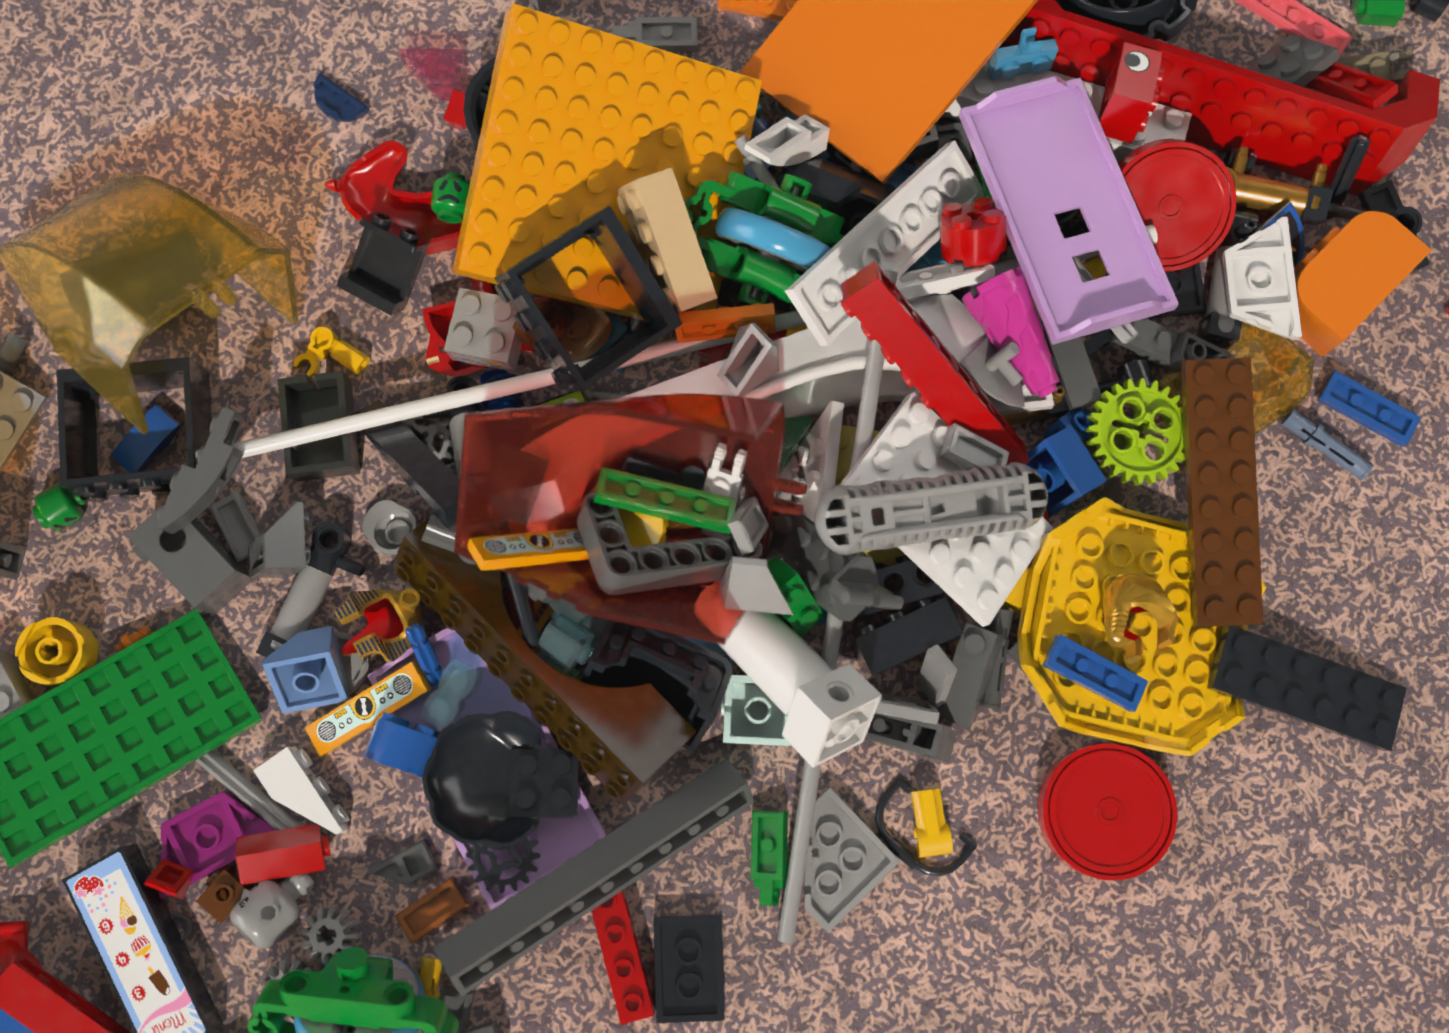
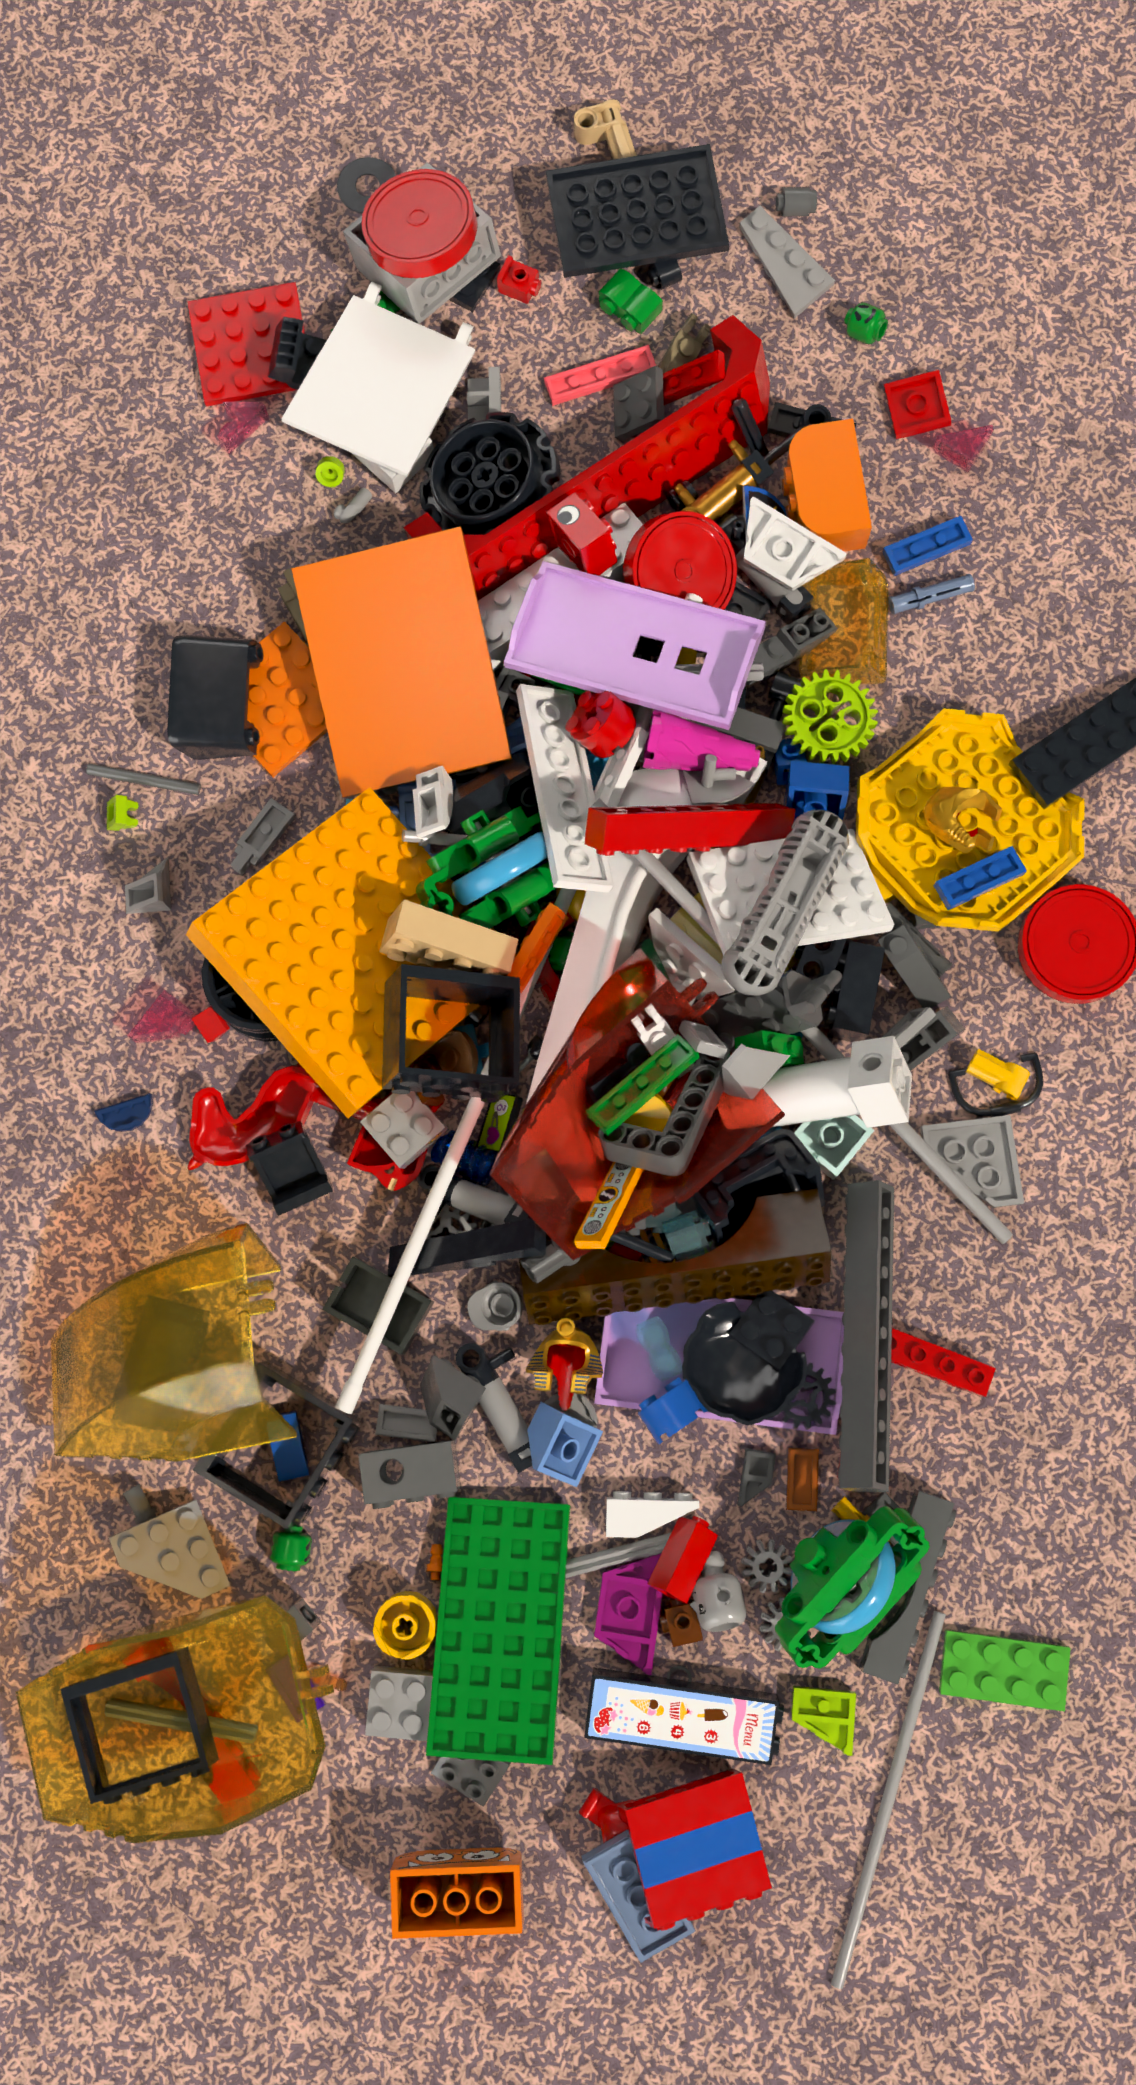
camera: 45 degrees left, 0 degrees up
(170, 879) = (642, 1655): red slope -> none
(197, 488) = (369, 1423): dark grey slope -> none
(325, 341) = (312, 1257): yellow bar -> none
(365, 708) = (620, 1420): tile -> none
(424, 653) = (614, 1346): blue axle -> none
(450, 197) = (280, 1079): green head -> none
(688, 968) = (978, 1321): black plate -> none
(749, 361) = (580, 950): light grey slope -> none
(769, 854) = (937, 1204): green hinge -> none
(936, 675) = (899, 989): light grey tile -> none
(970, 449) = (761, 843): light grey tile -> none
(1023, 58) = (496, 587): dark azure plate -> none
(1222, 492) = (916, 693): reddish brown plate -> none

